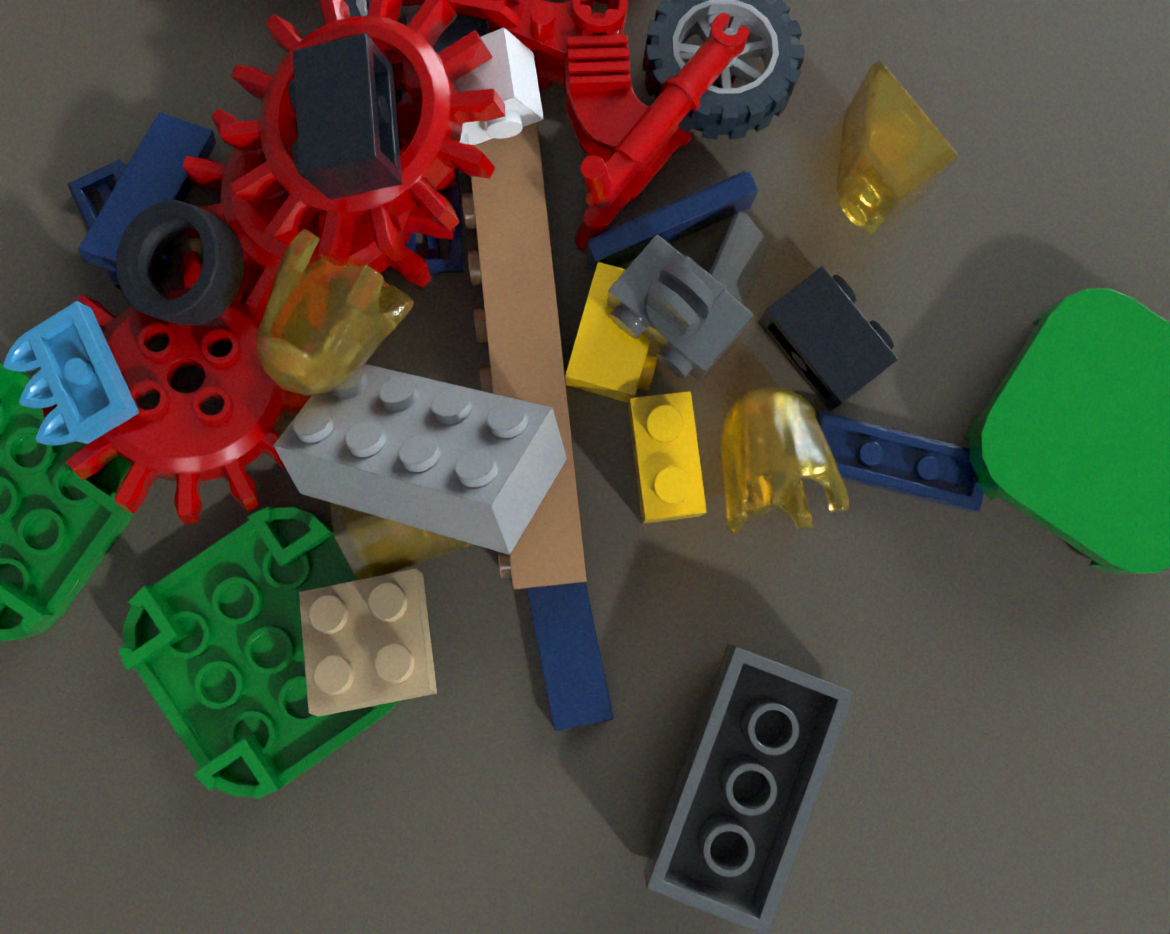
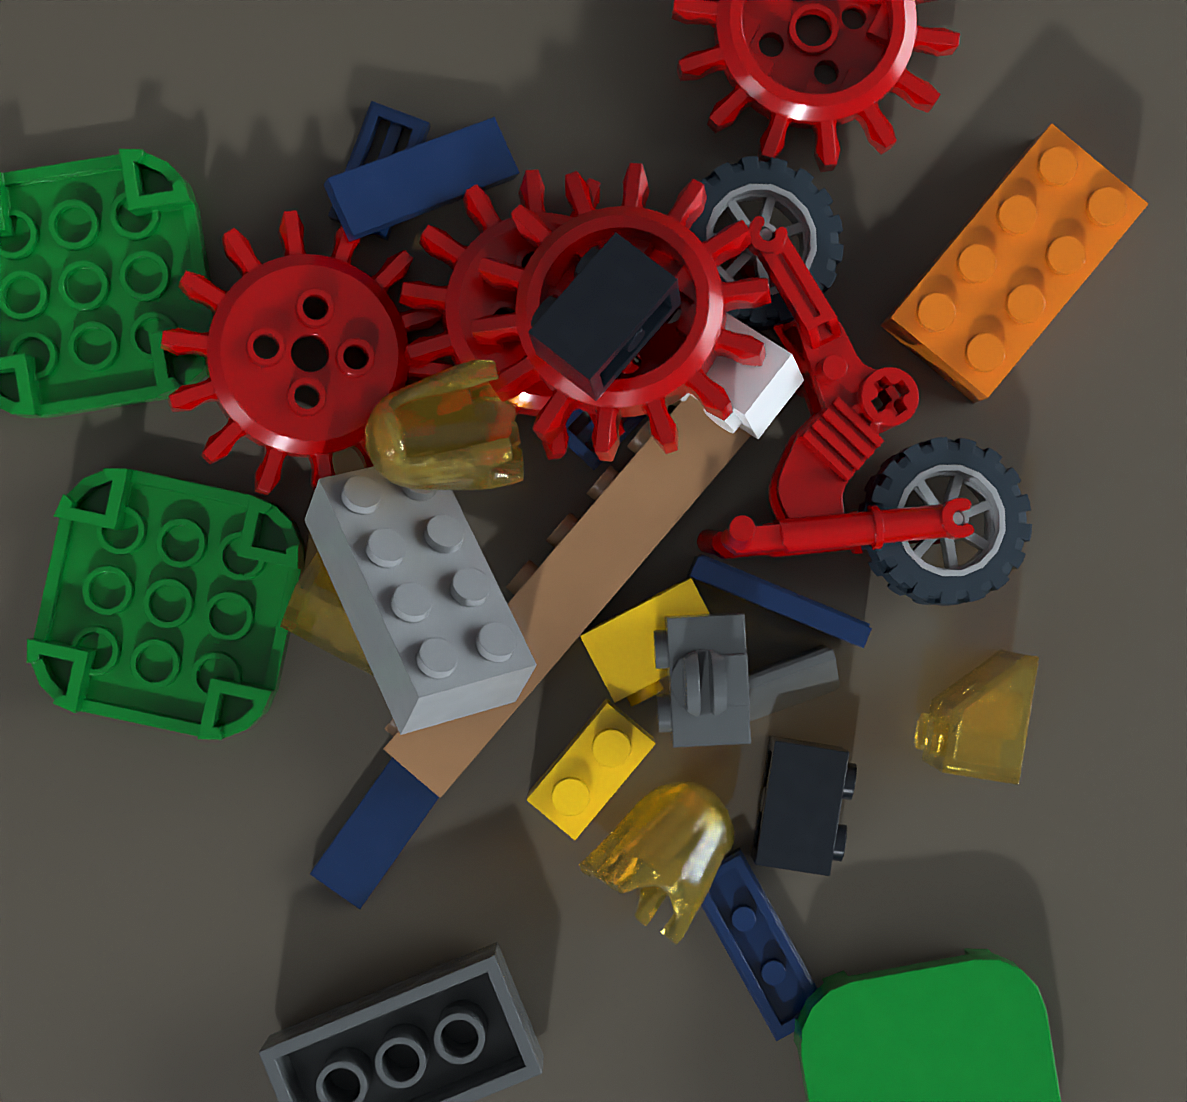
camera: 40 degrees right, 5 degrees up
(74, 374) = (230, 280): dark azure plate -> none
(142, 251) = (356, 242): black tyre -> none
(367, 643) = (242, 677): tan plate -> none

